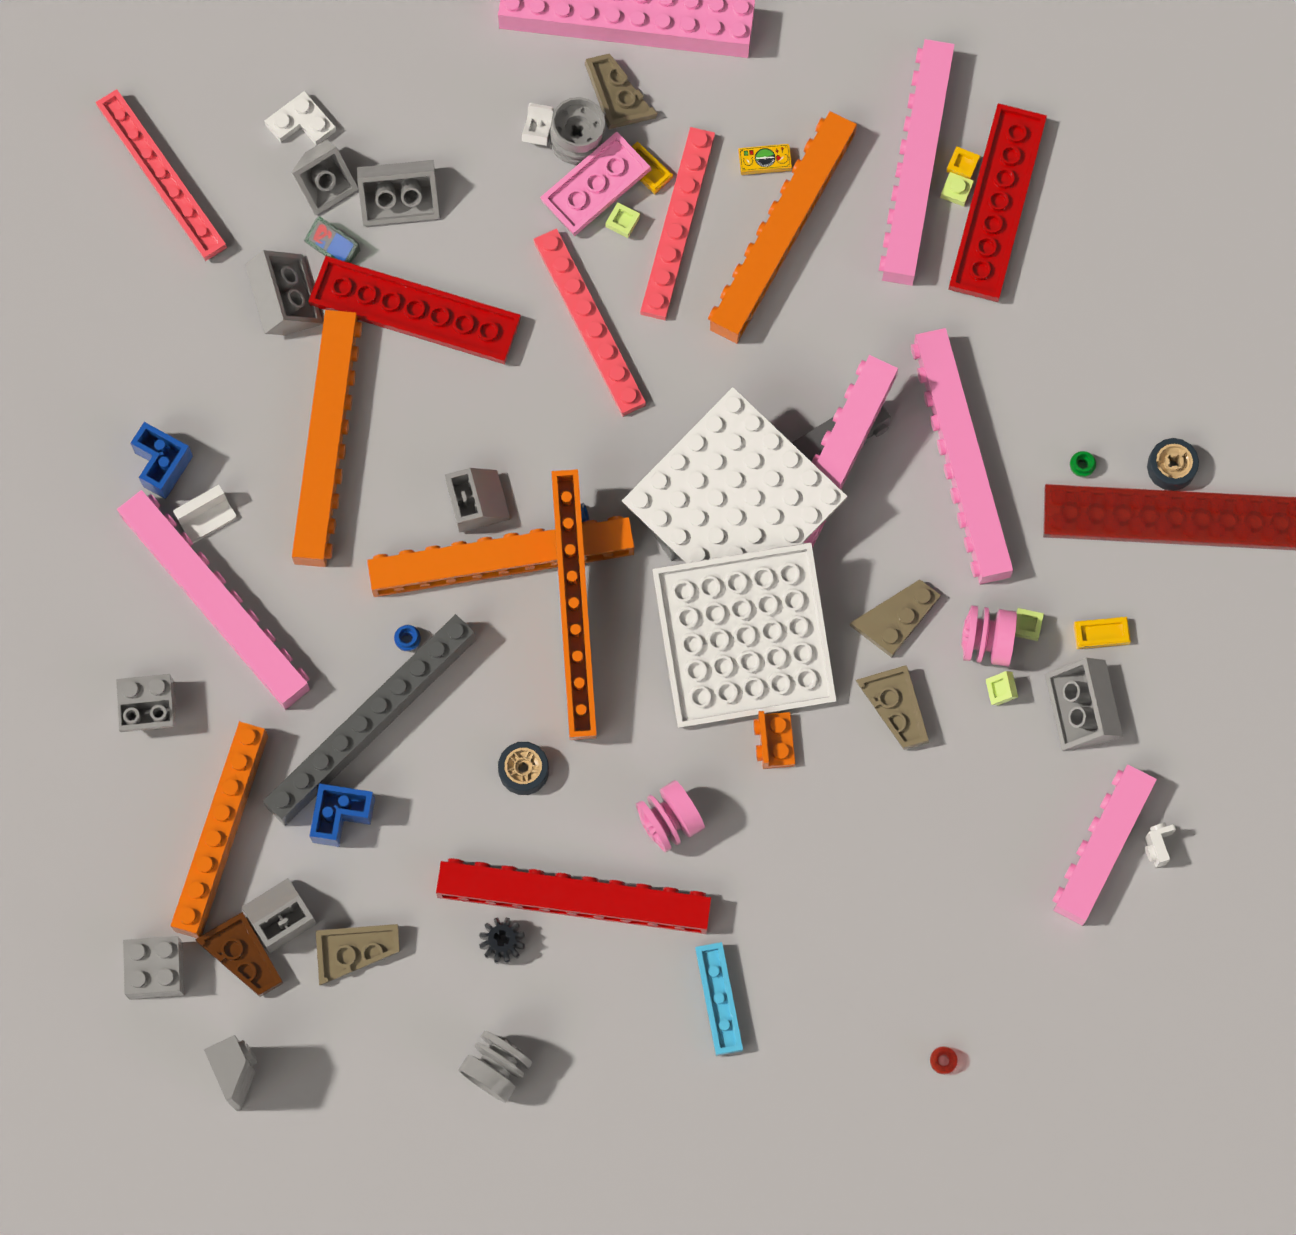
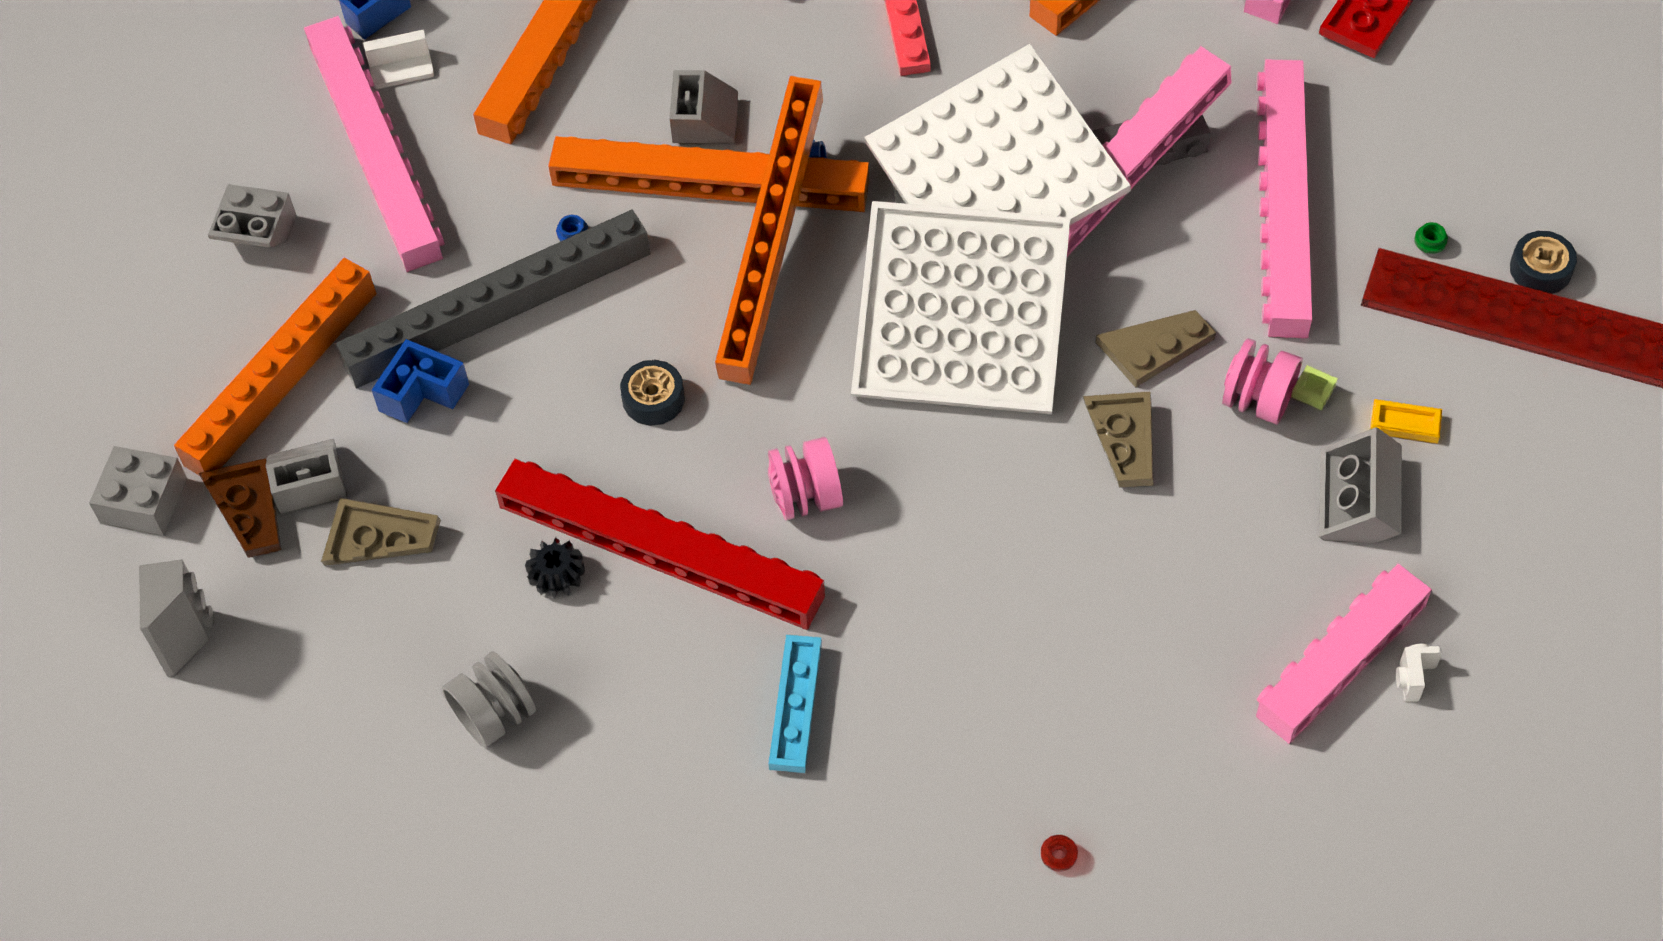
camera: 20 degrees right, 15 degrees down
(776, 740) = (963, 438): orange bracket -> none
(1001, 688) = (1261, 447): yellowish green plate -> none

